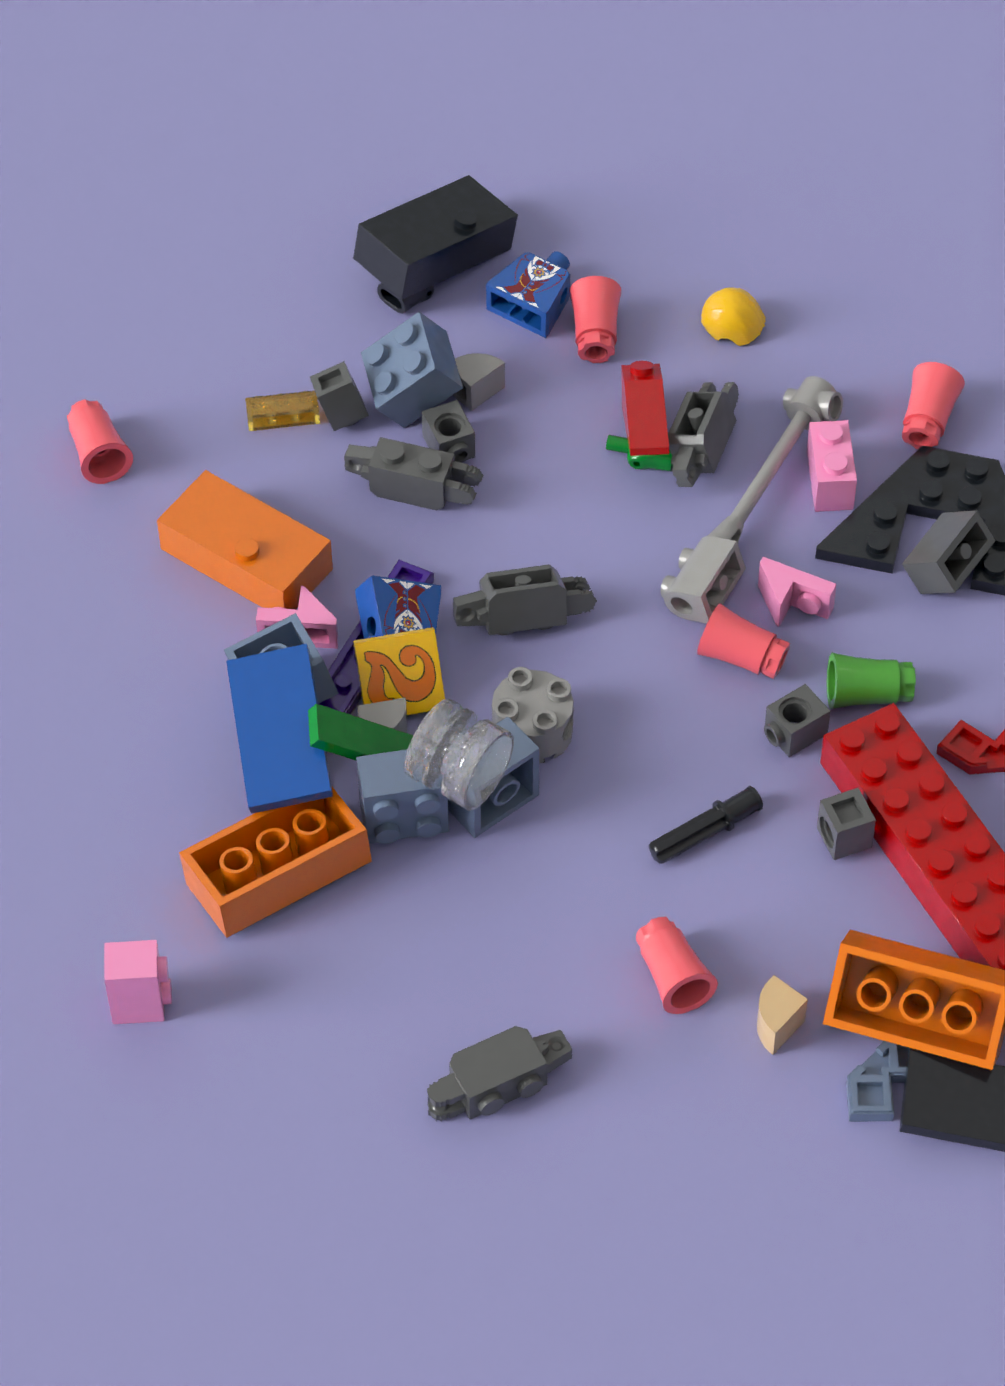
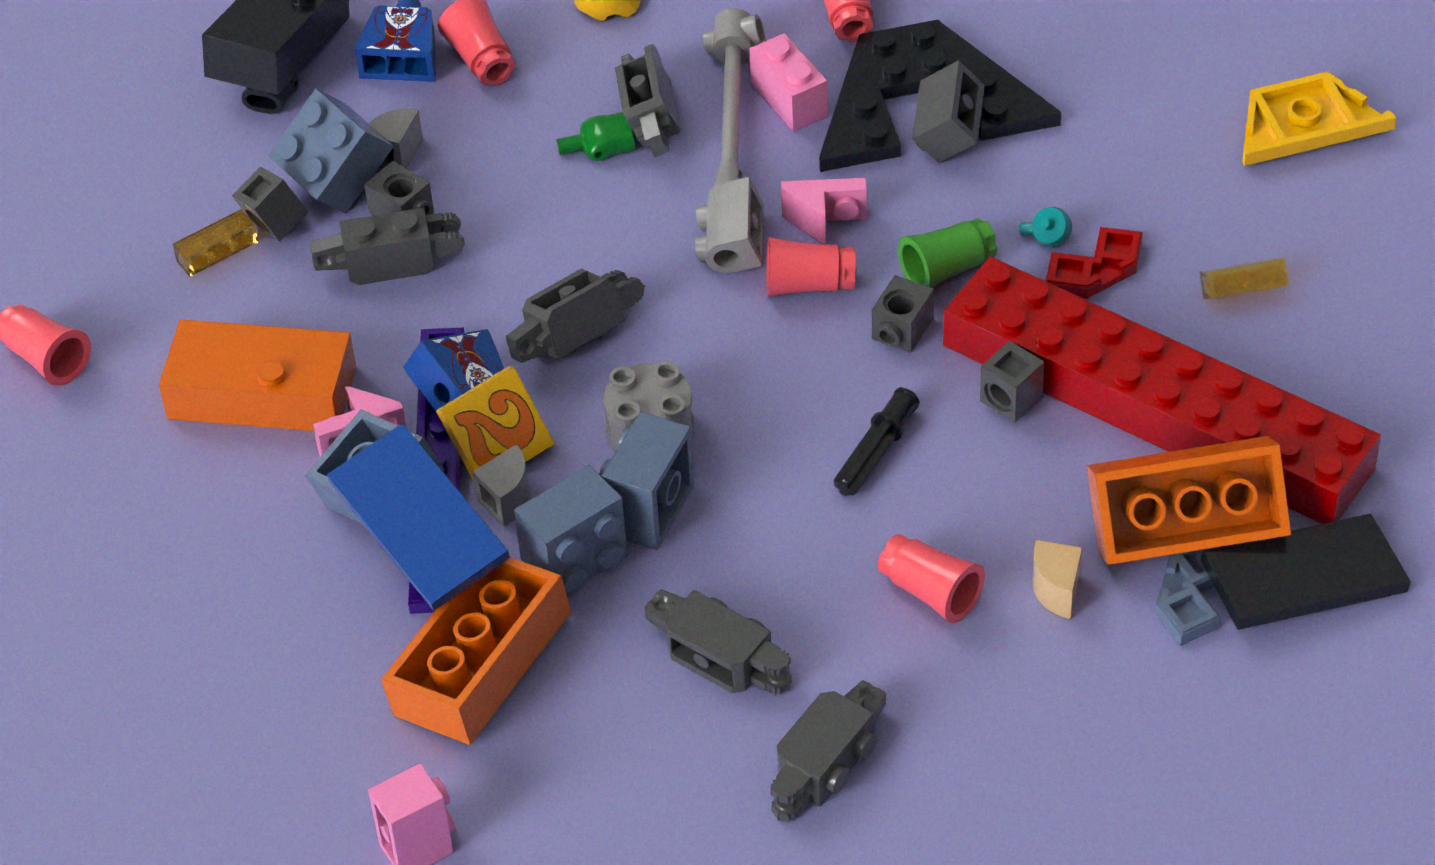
camera: 25 degrees left, 5 degrees down
(352, 735) = (496, 492): green tile -> none
(459, 754) = (626, 455): clear wheel -> none
(468, 943) = (719, 642): none -> dark grey hinge
(644, 408) = (581, 97): red slope -> none
(973, 695) = (1050, 227): none -> teal piece

